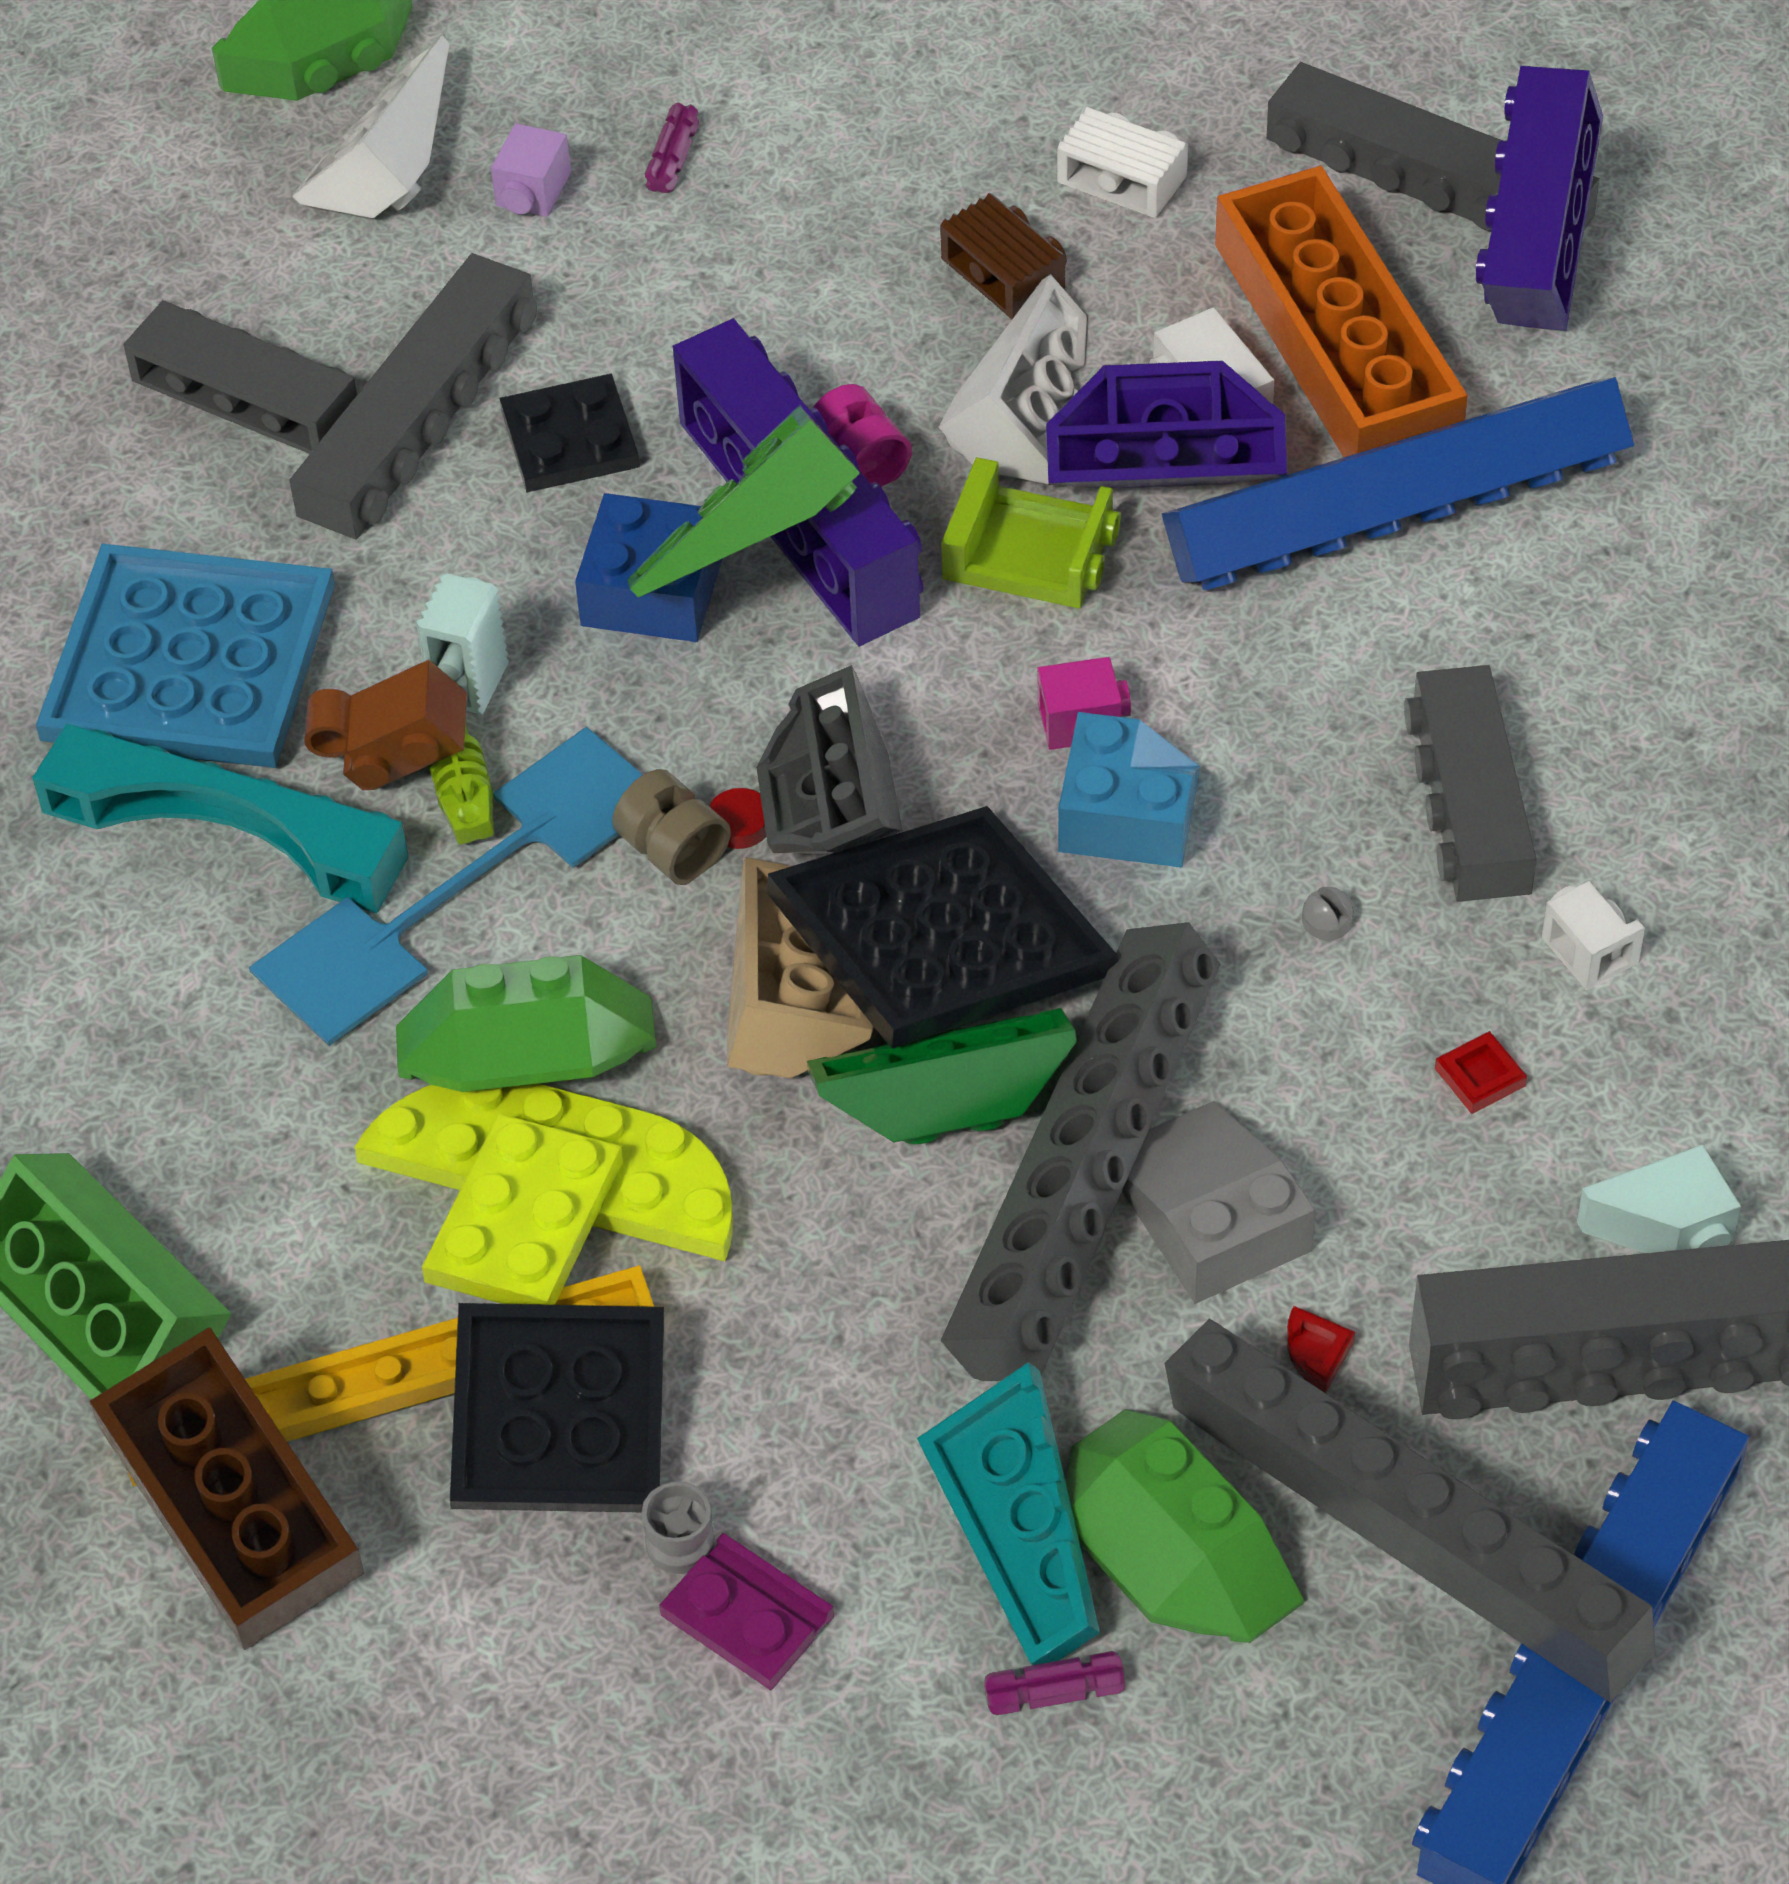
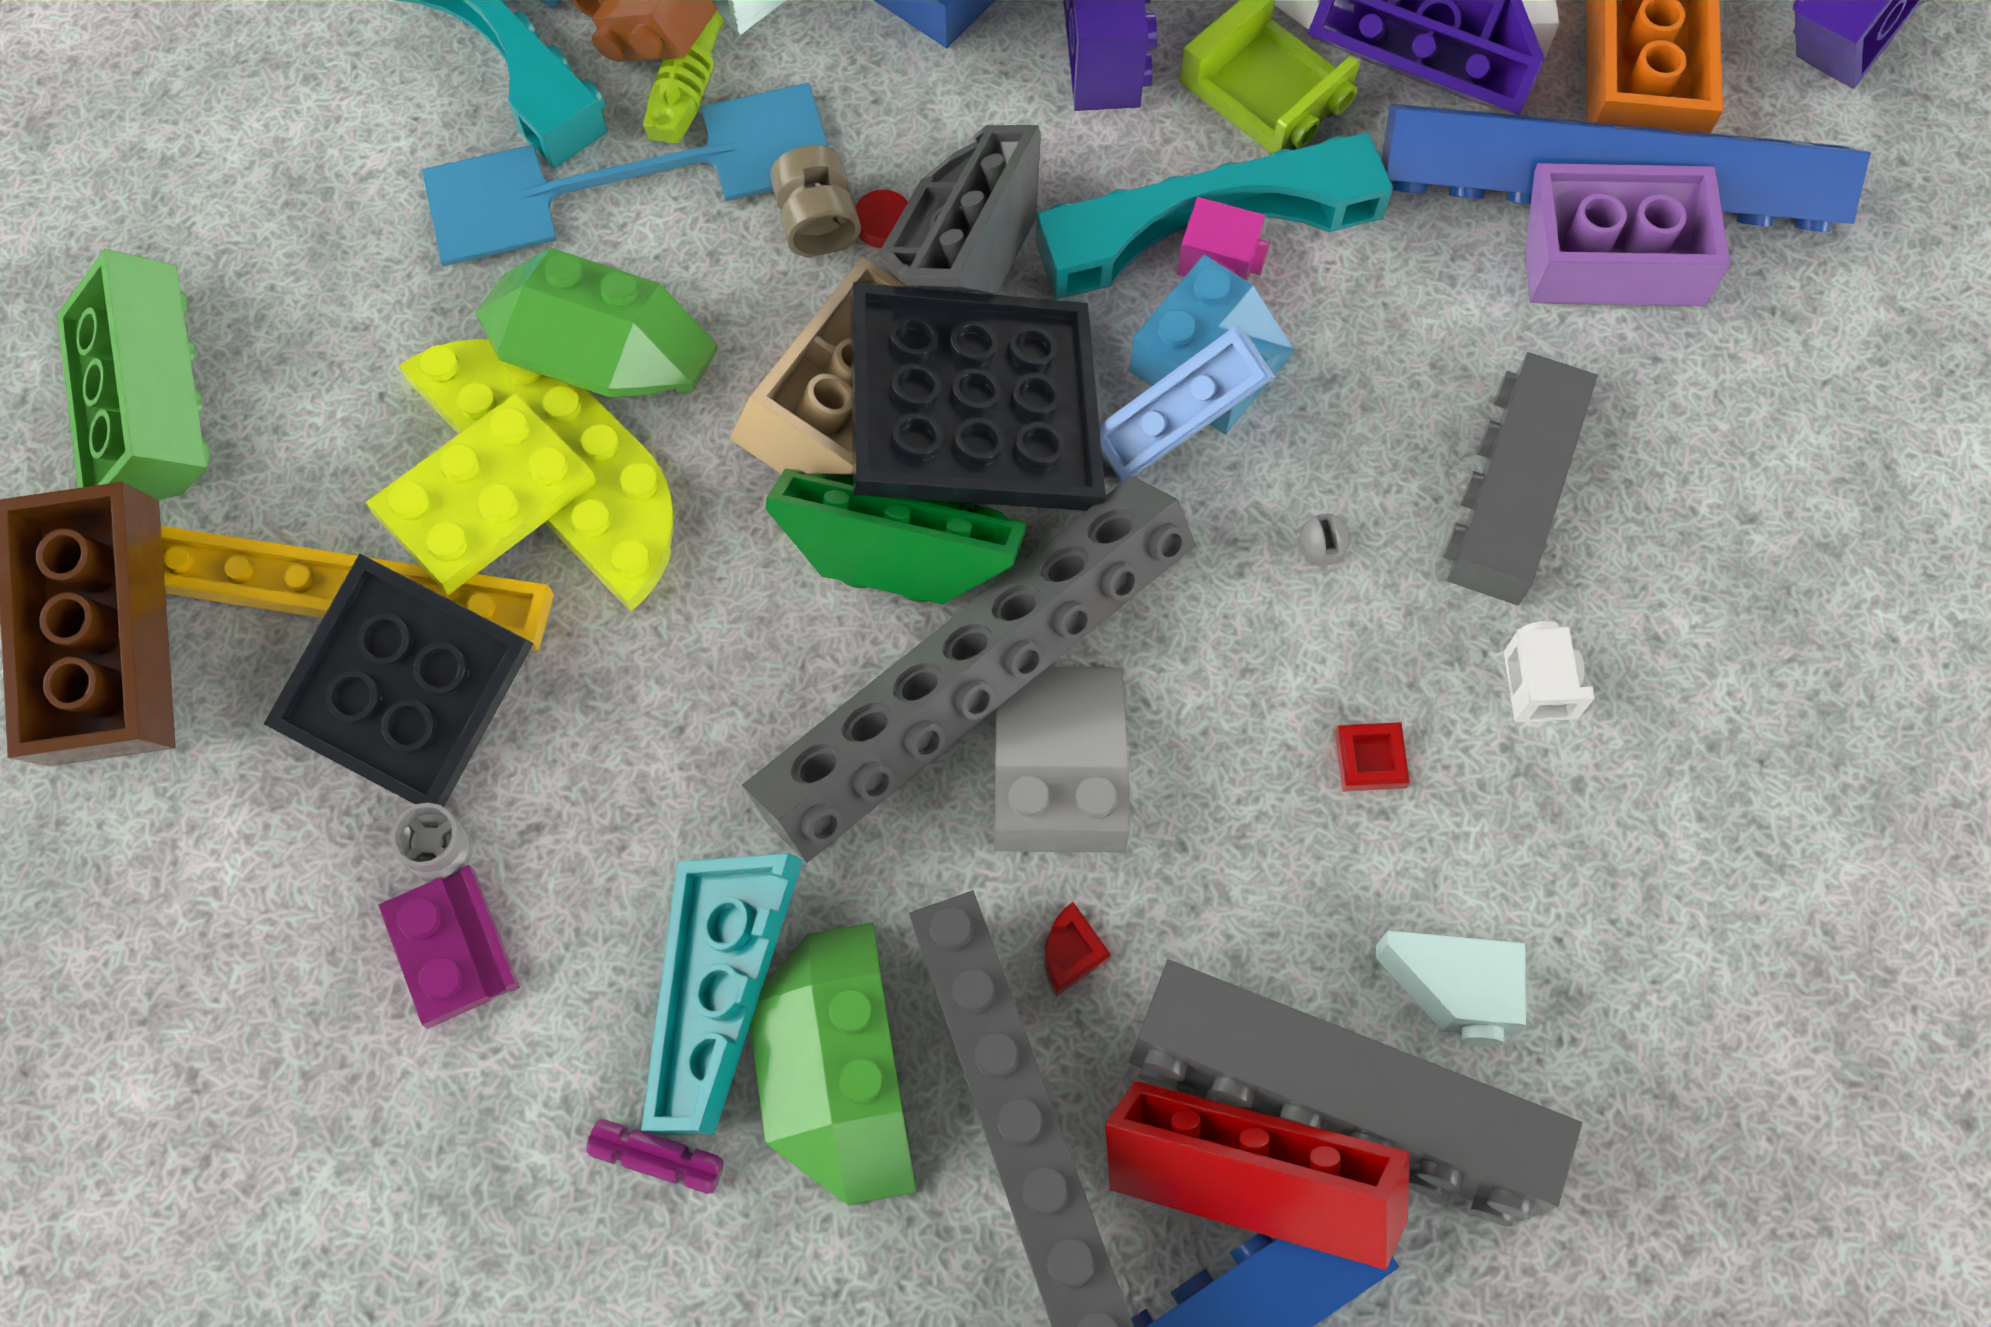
camera: 25 degrees right, 15 degrees up
(1138, 613) = (1317, 185): none -> teal arch
(1138, 846) = (1183, 403): none -> light blue tile
(1441, 539) = (1625, 235): none -> medium lavender slope
(1590, 1412) = (1259, 1173): none -> red brick

